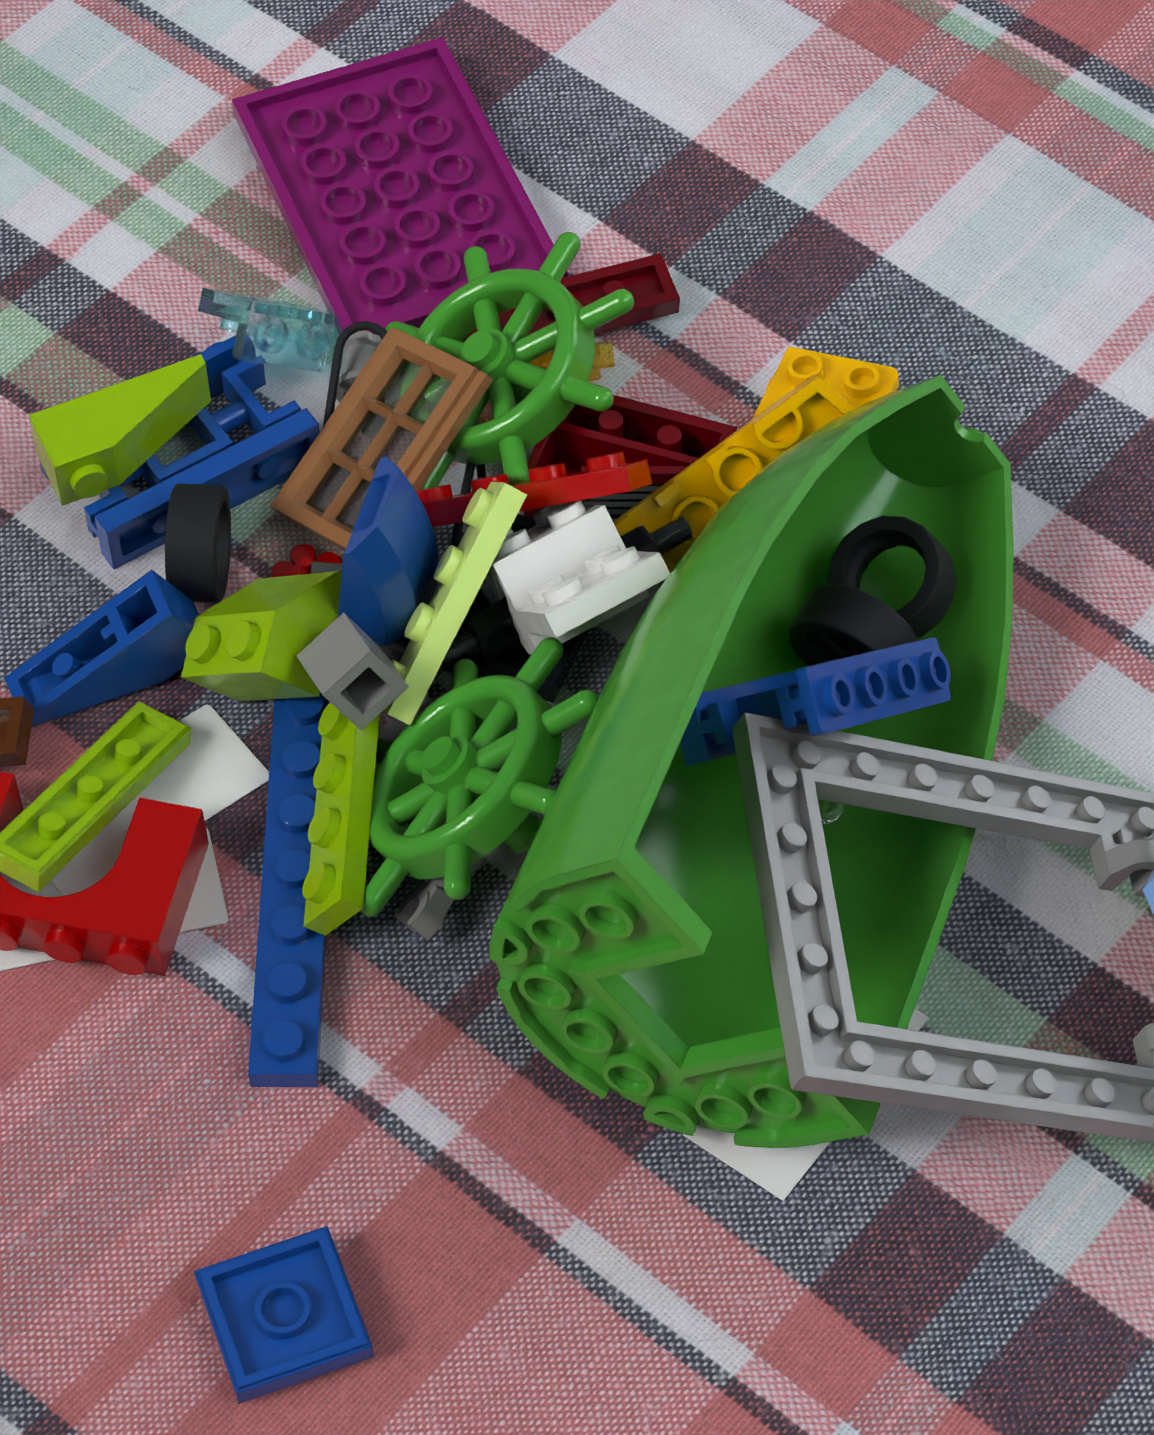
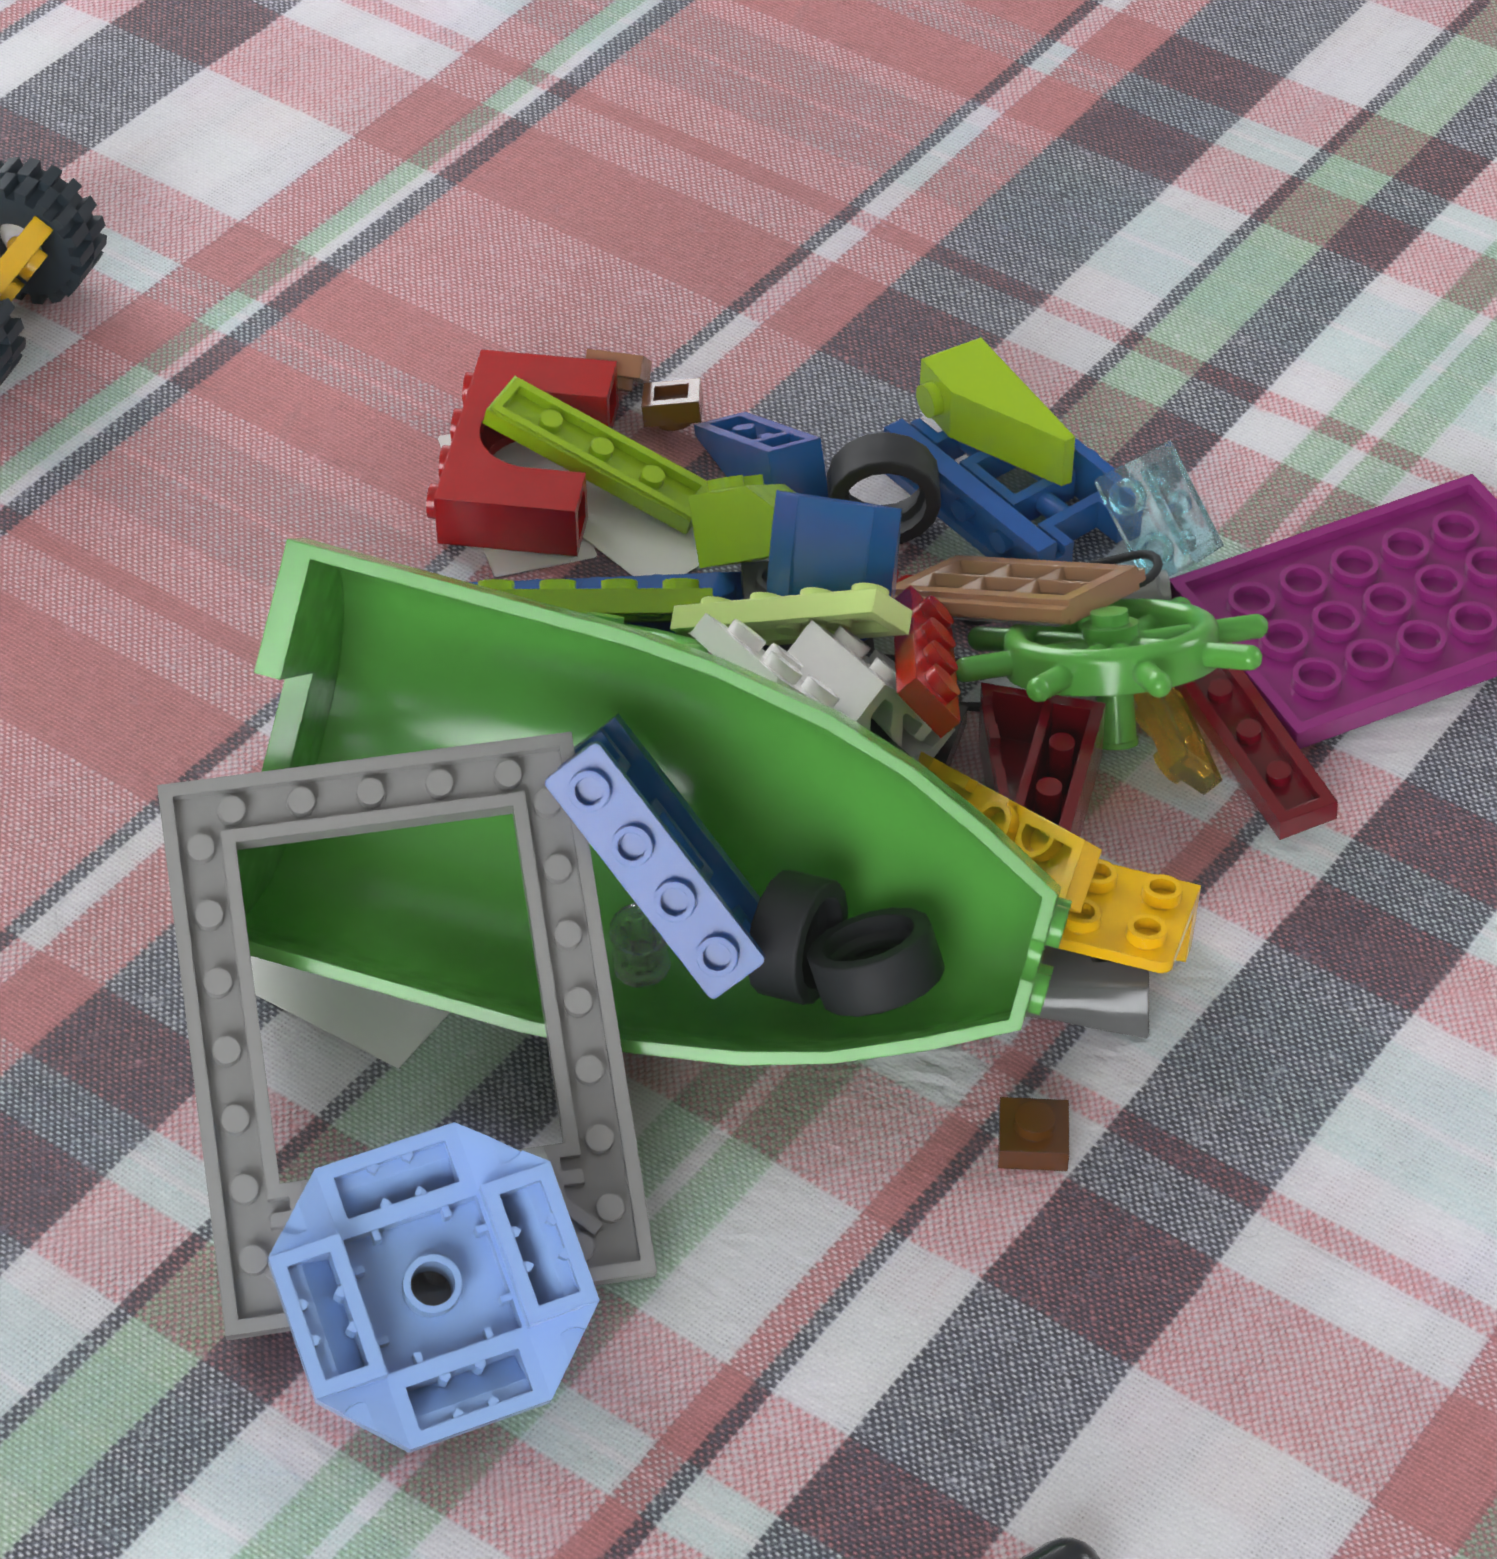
camera: 85 degrees right, 10 degrees down
(283, 1314) = (88, 630): blue plate -> none
(352, 671) = (700, 559): light grey brick -> none
(1033, 523) = (1033, 1134): none -> reddish brown plate

